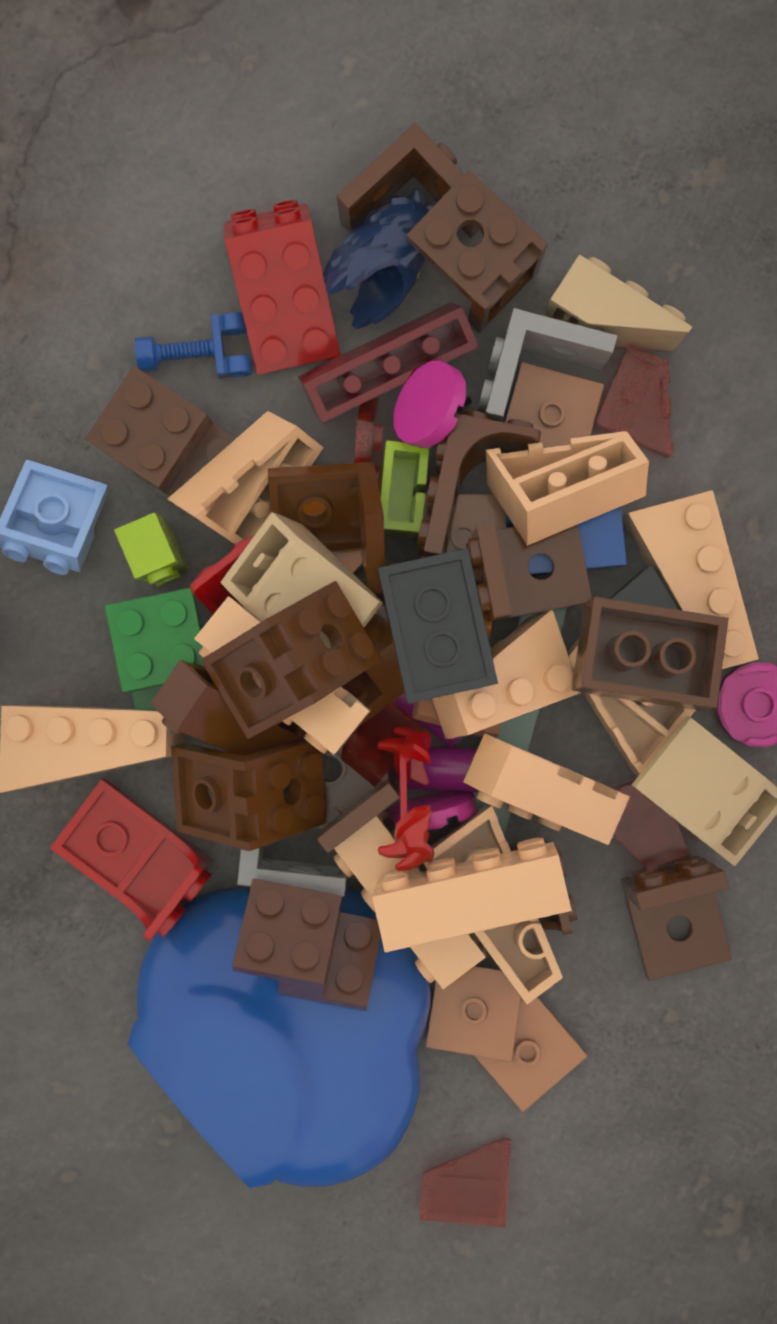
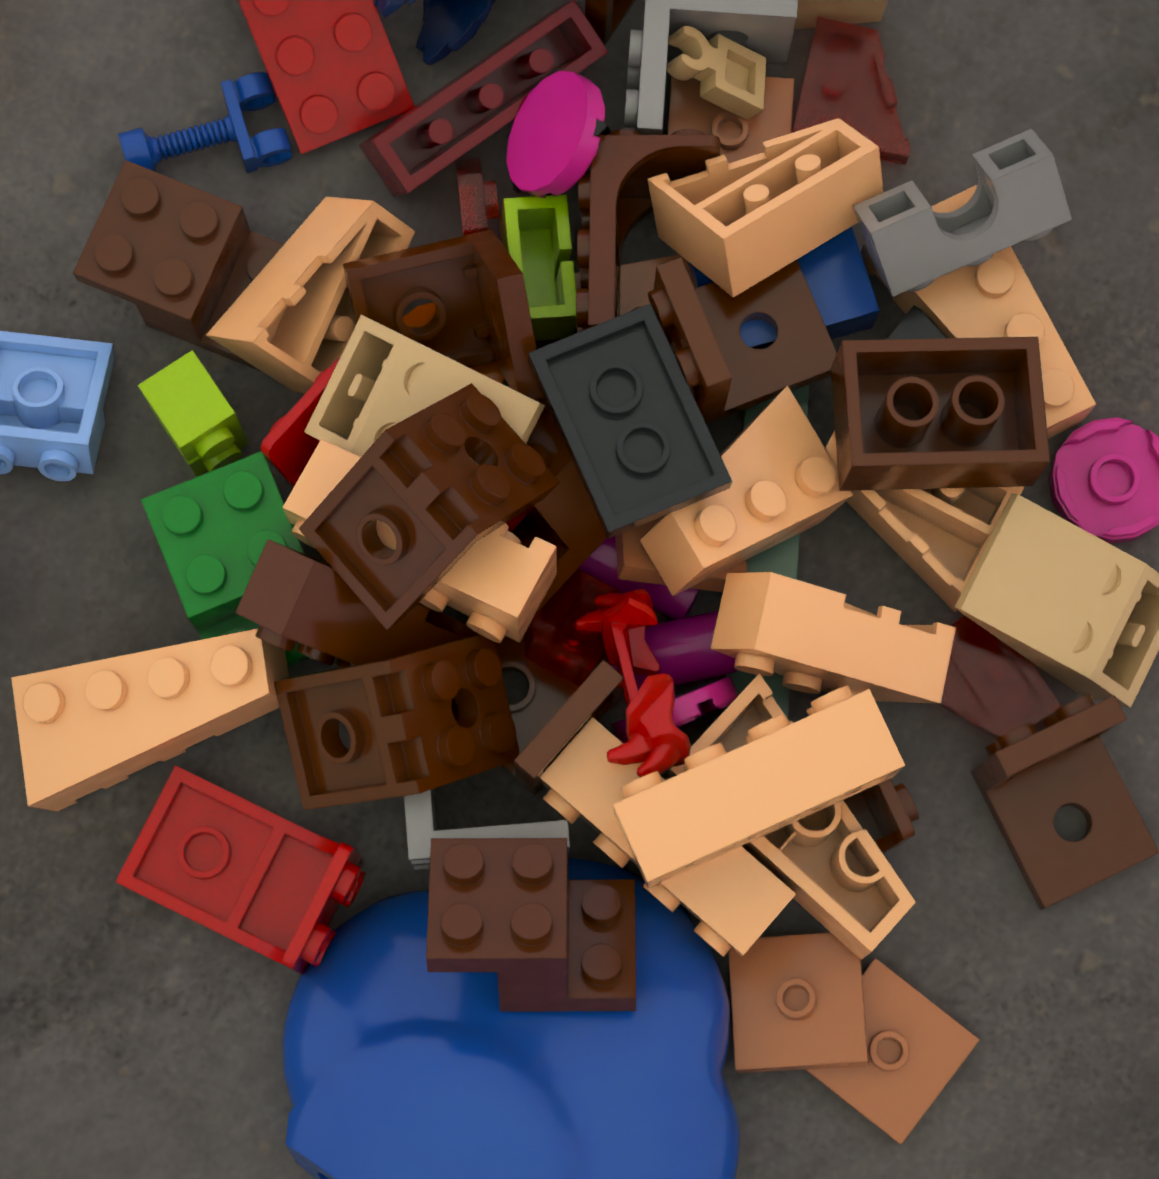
camera: 15 degrees left, 10 degrees down
(557, 374) = (727, 71): none -> tan plate
(732, 516) = (1014, 202): none -> light grey arch

